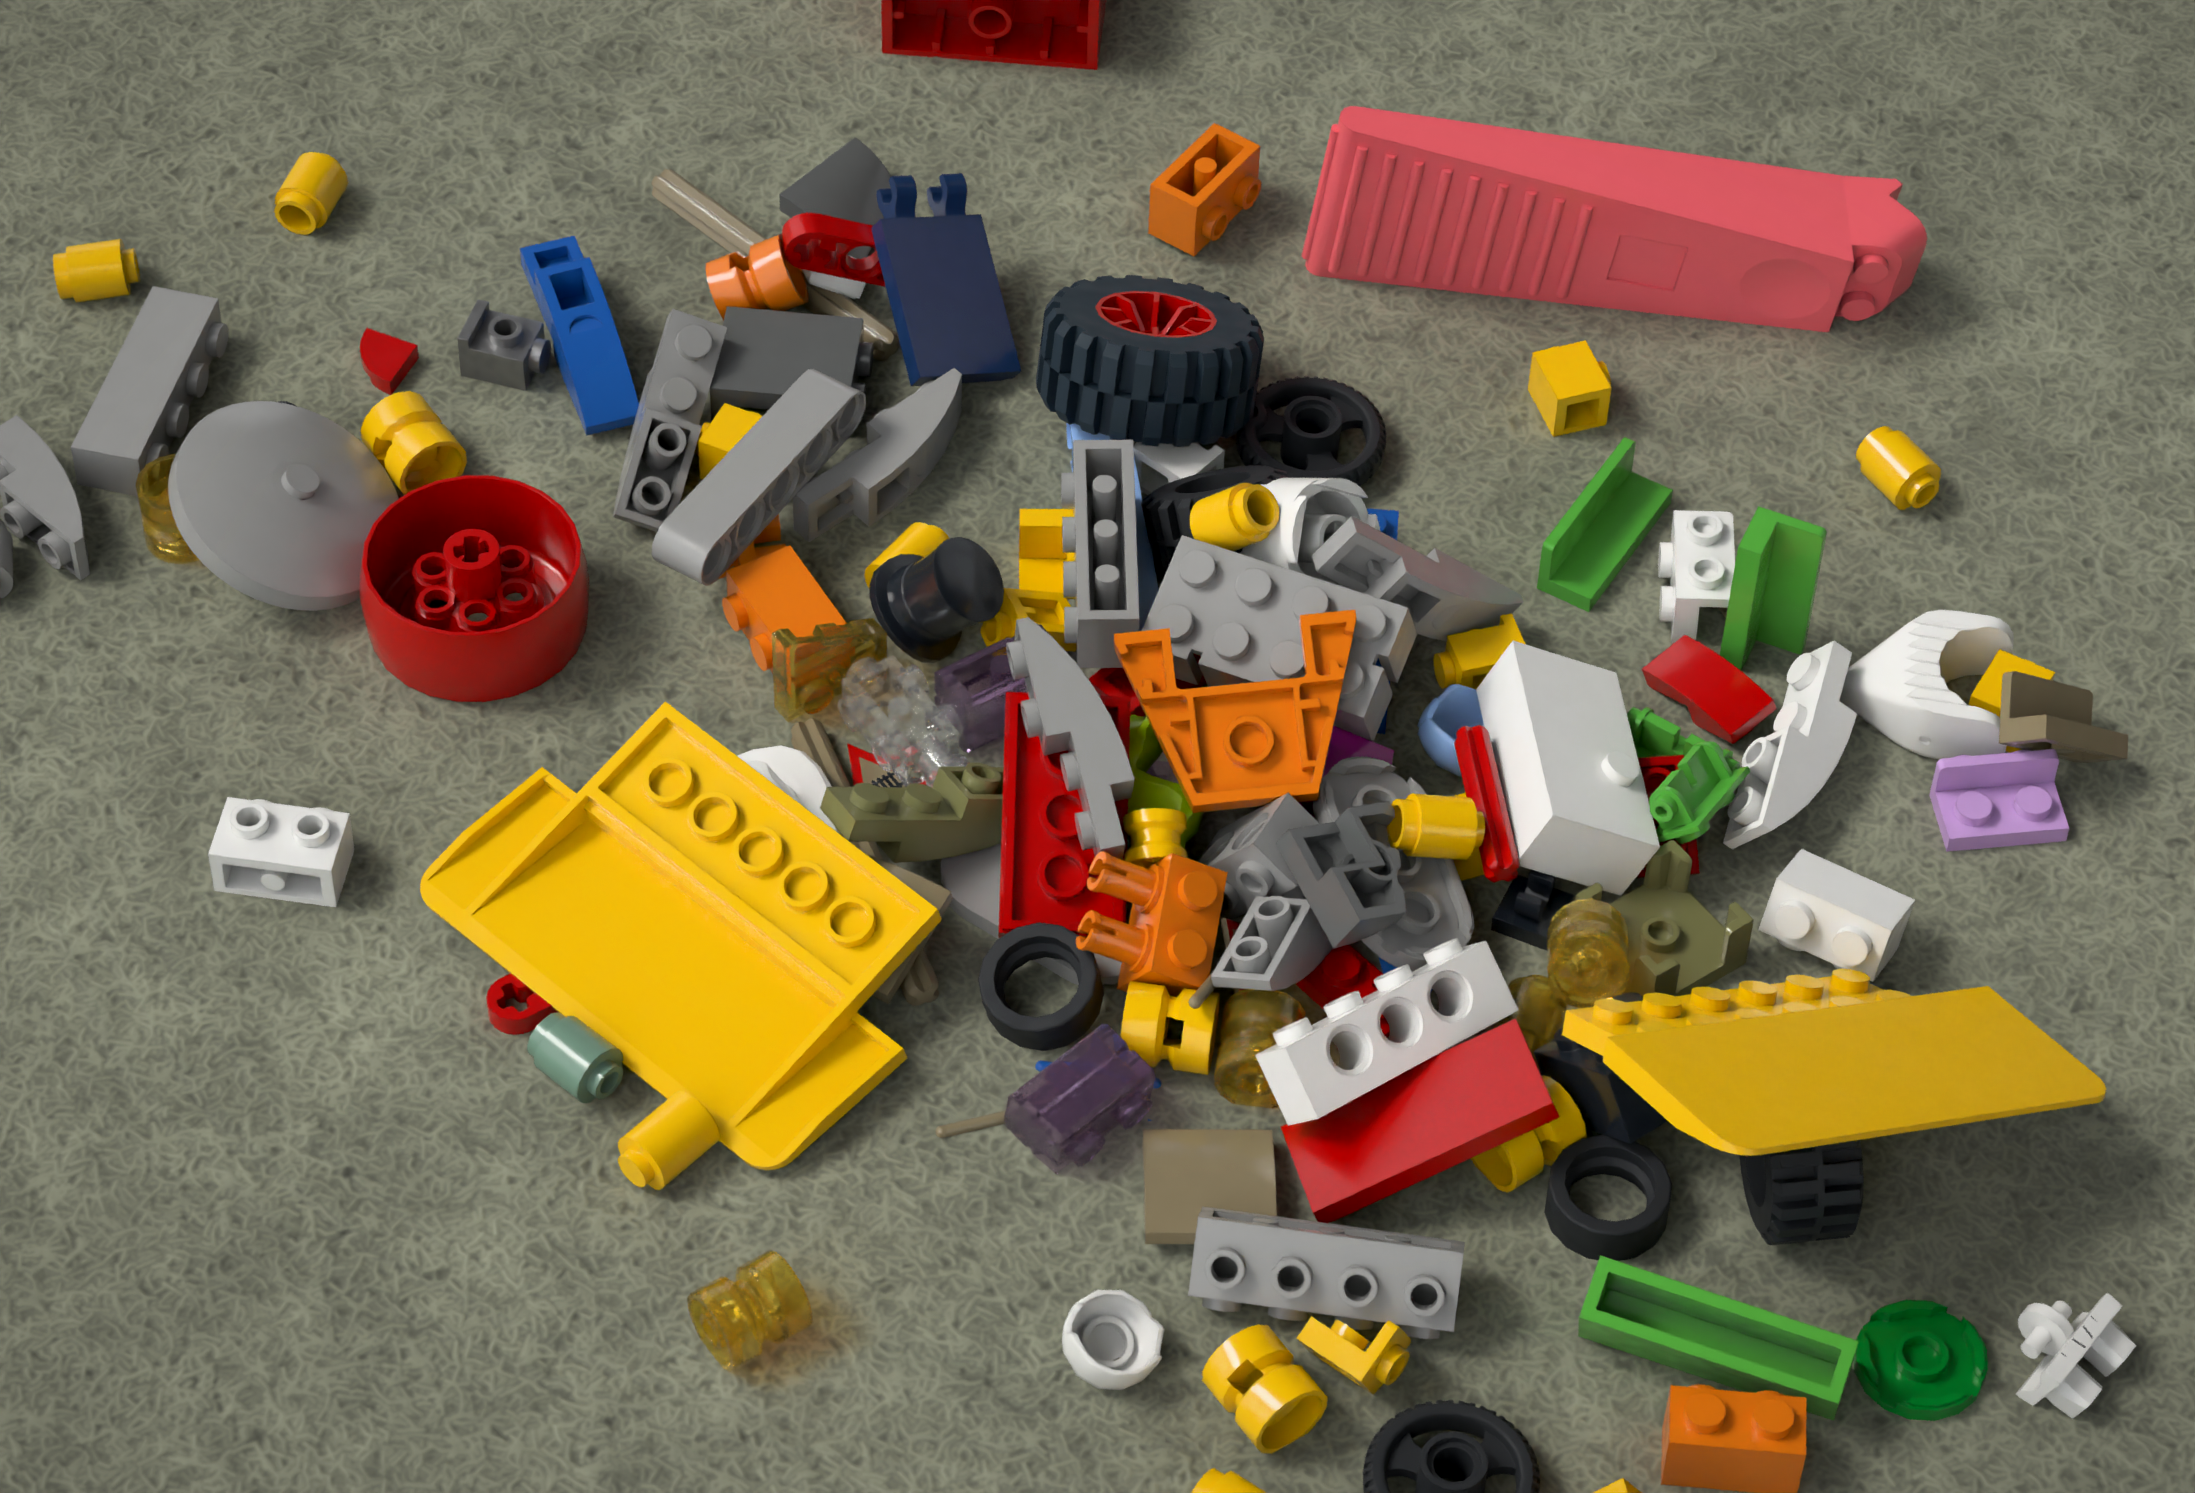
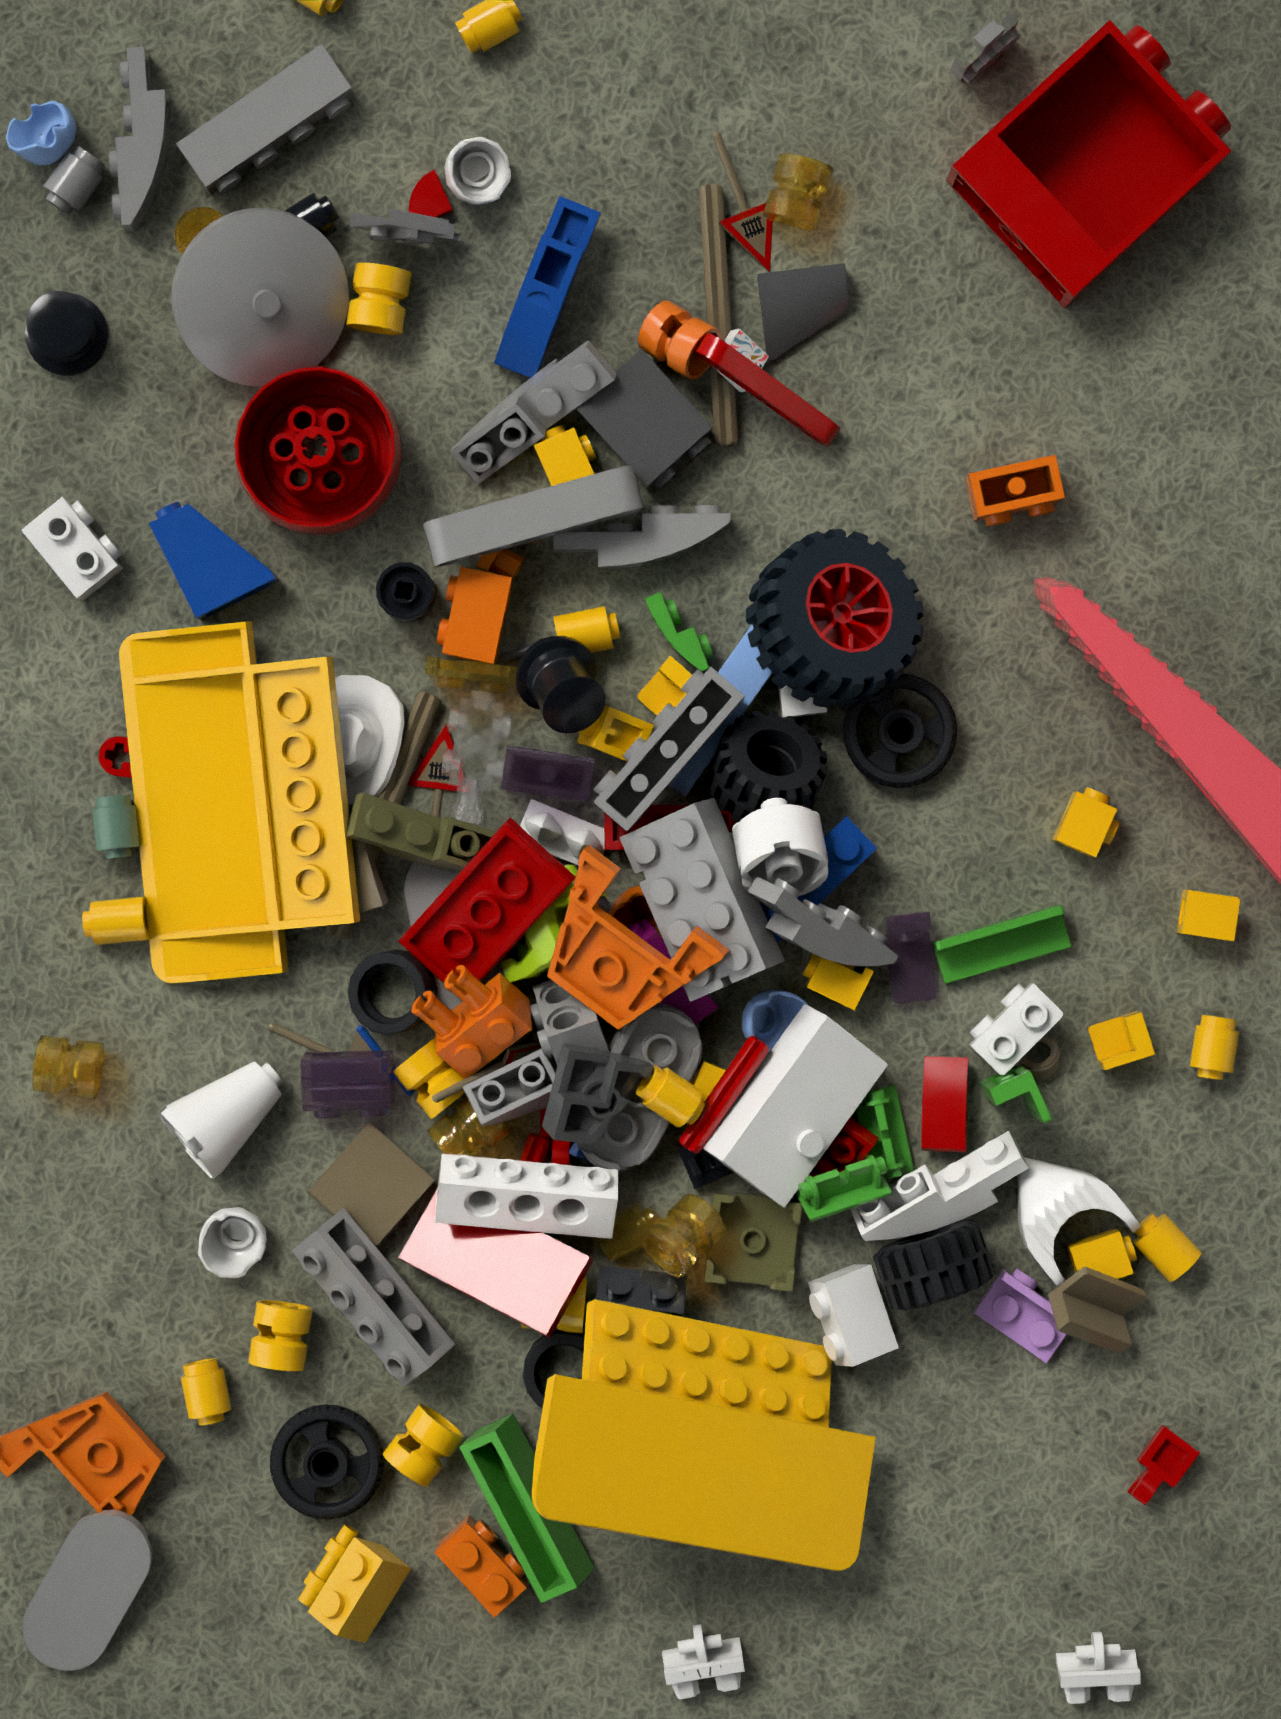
camera: 45 degrees right, 40 degrees up
(91, 679) = (65, 333): none -> black piece
(387, 360) = (405, 228): none -> light grey piece
(413, 298) = (470, 162): none -> white hair
(444, 762) = (207, 561): none -> blue slope
(502, 347) = (493, 238): flat silver brick -> none
(690, 645) = (406, 592): none -> black wheel
(728, 183) = (750, 226): none -> piece
(752, 122) = (798, 191): none -> clear yellow wheel
(942, 285) = (775, 447): dark blue tile -> none
(972, 1236) = (222, 1115): none -> white cone
(991, 507) = (687, 644): none -> bright green slope
(1073, 718) = (516, 888): light grey slope -> none
(1154, 835) = (514, 973): yellow wheel -> none
(1235, 516) = (733, 817): yellow brick -> none
(1344, 1351) = (340, 1353): yellow bracket -> none
(1538, 1372) = (423, 1445): none -> yellow wheel
(1545, 612) = (913, 971): none -> clear purple bracket
(1766, 377) = (1208, 915): none -> yellow panel
(1821, 505) = (1121, 1040): none -> yellow panel
(1862, 793) = (934, 1265): none -> black tyre
(1915, 1379) = (632, 1576): green tile -> none
(2060, 646) = (1166, 1246): none -> yellow brick

